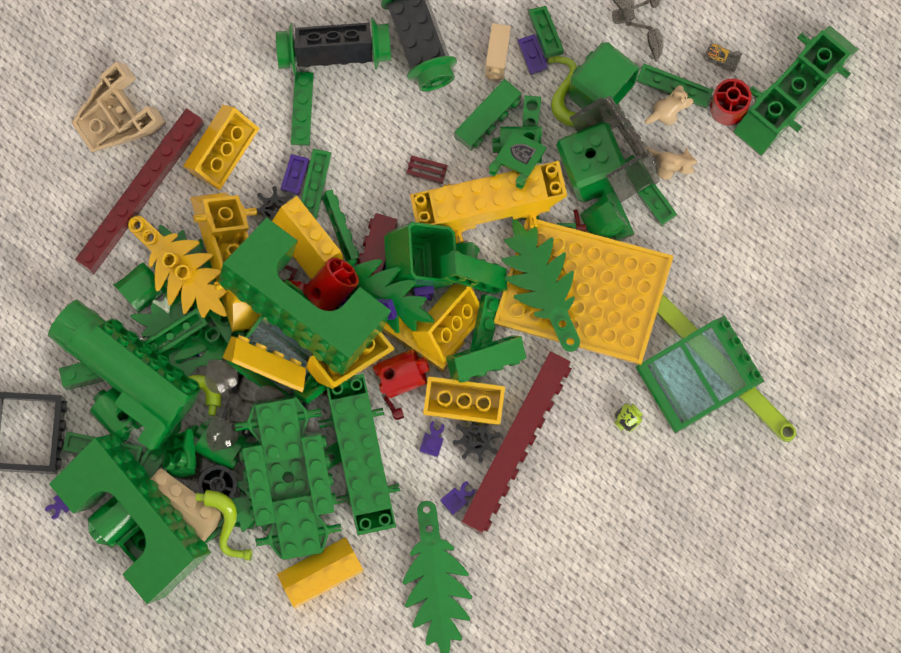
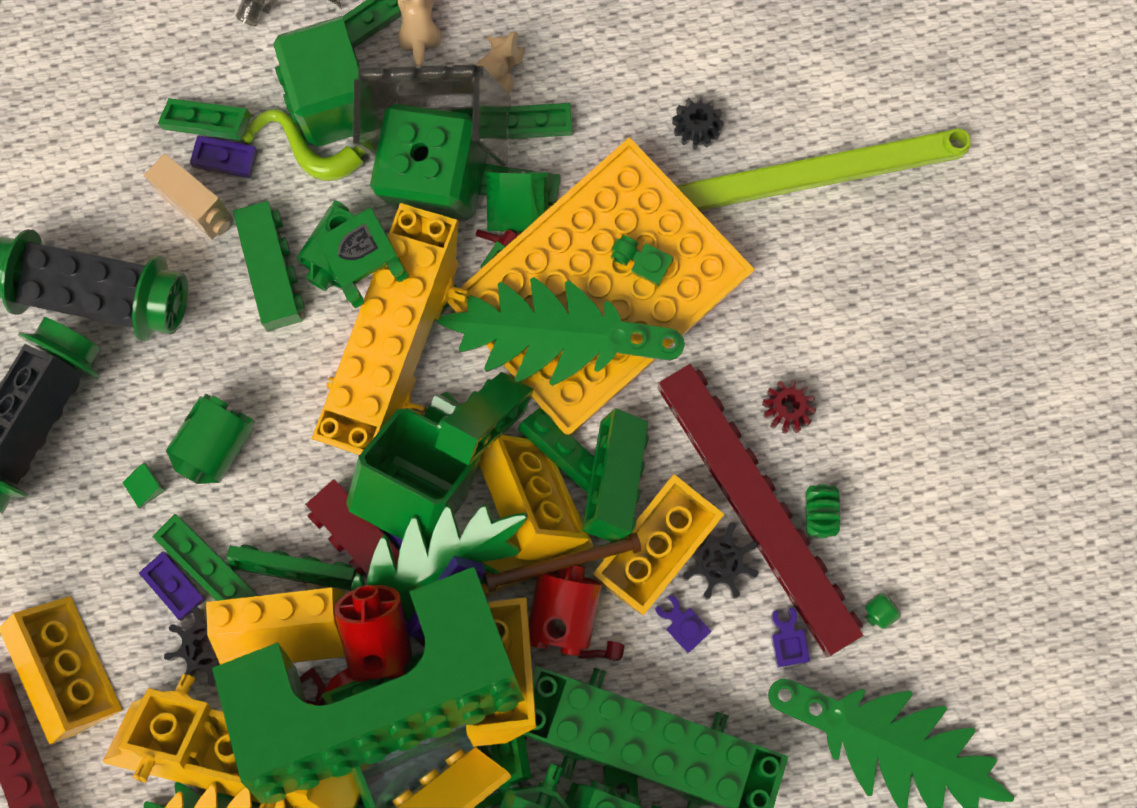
camera: 55 degrees left, 0 degrees up
(302, 109) = (84, 517): green plate -> none
(336, 127) = (143, 485): none -> green slope
(377, 144) = (208, 440): none -> green cylinder
(423, 356) = (562, 562): none -> reddish brown bar
(427, 162) = (283, 385): dark red tile -> none
(427, 292) = (467, 505): dark purple plate -> none
(502, 537) = (882, 611): none -> green piece
(531, 110) = (300, 204): green leg -> none
(534, 475) = (822, 510): none -> green gear
(574, 425) = (778, 410): none -> dark red gear
(610, 307) = (649, 263): none -> green plate
(628, 417) = (812, 335): lime head -> none
(700, 374) = (812, 204): window -> none
(707, 293) = (702, 133): none -> black gear

